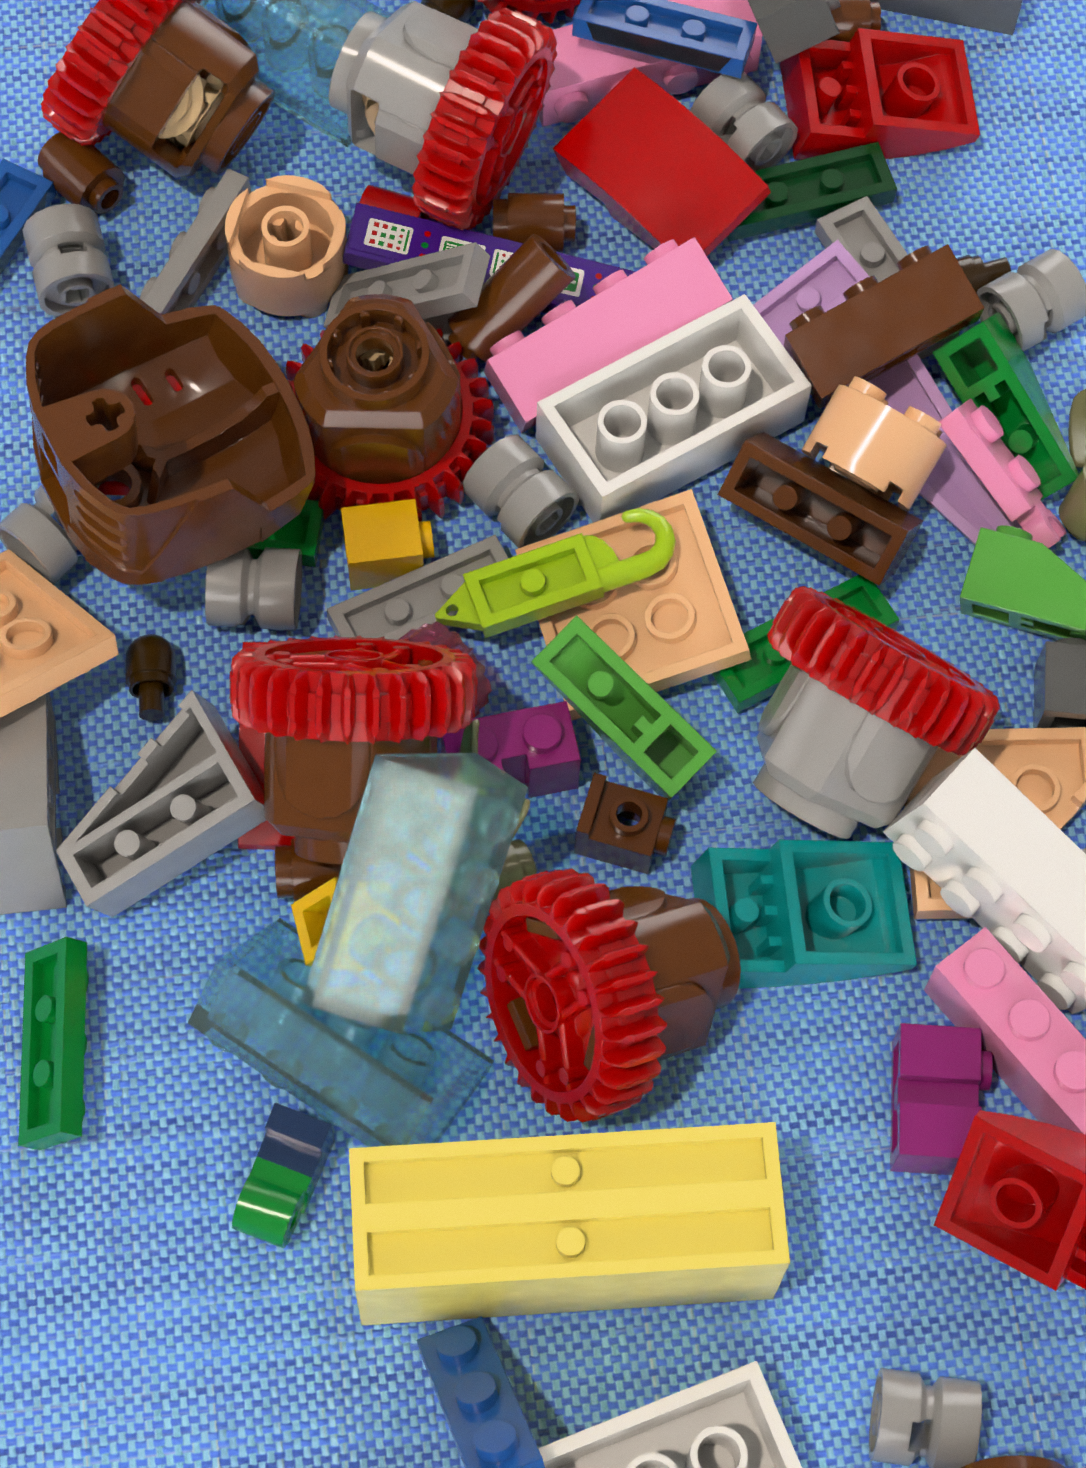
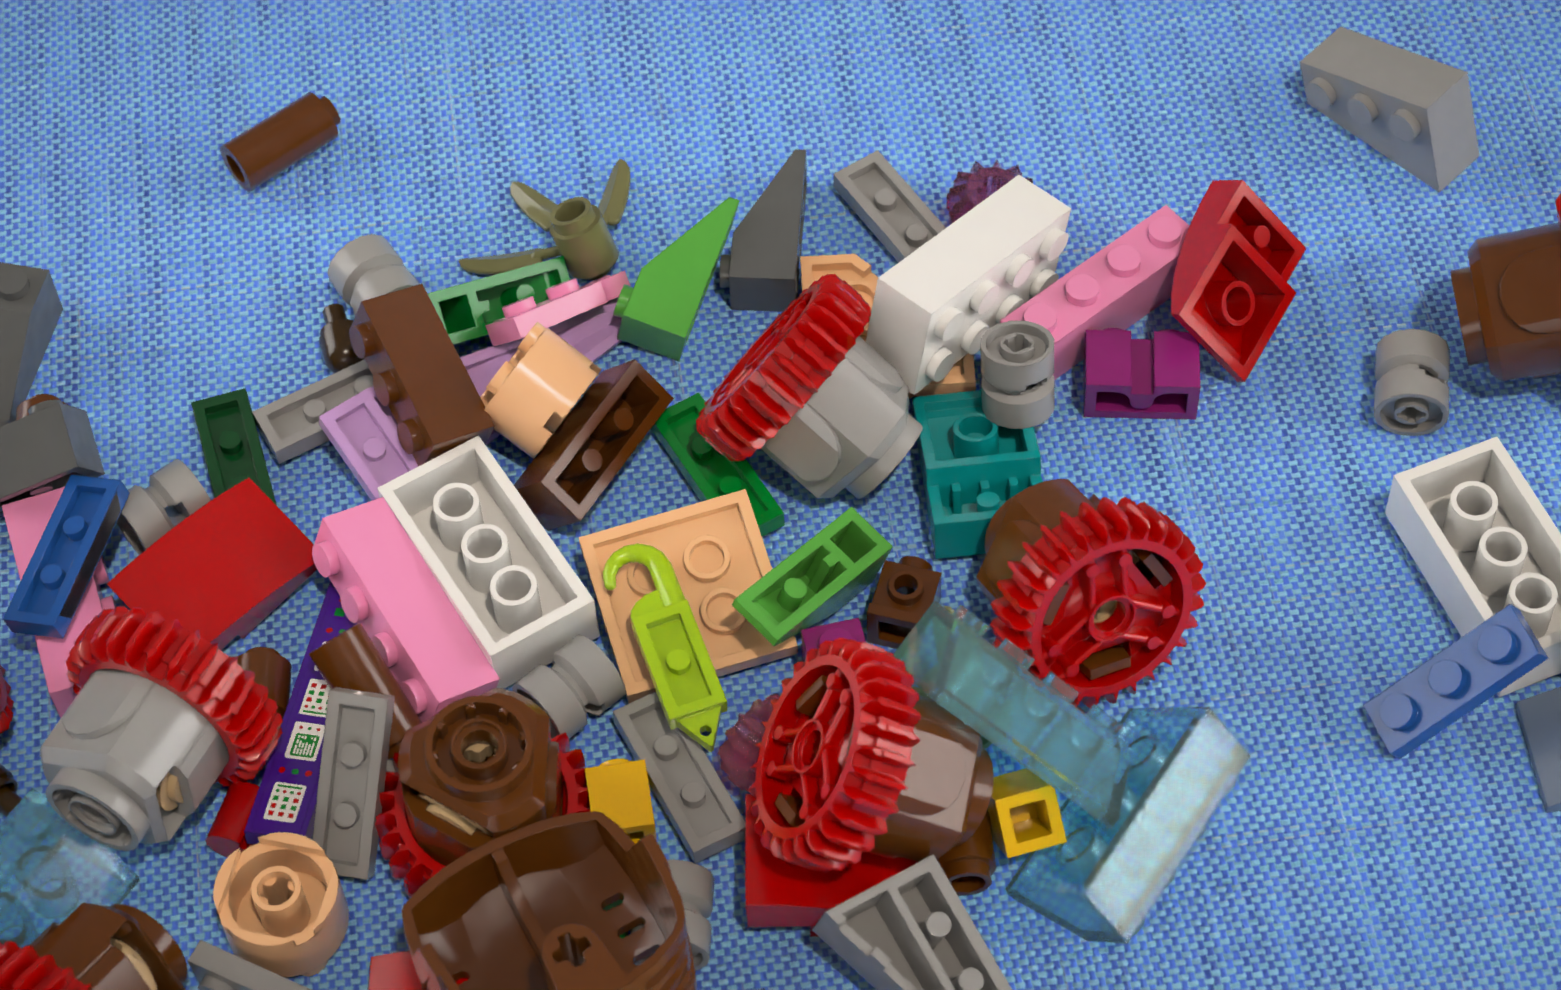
camera: 85 degrees left, 10 degrees down
(283, 1175) = (1260, 863): leg -> none
(567, 1223) = (1299, 616): light yellow brick -> none
(882, 89) = (138, 399): red slope -> none
(902, 937) = (1017, 374): none -> light grey wheel

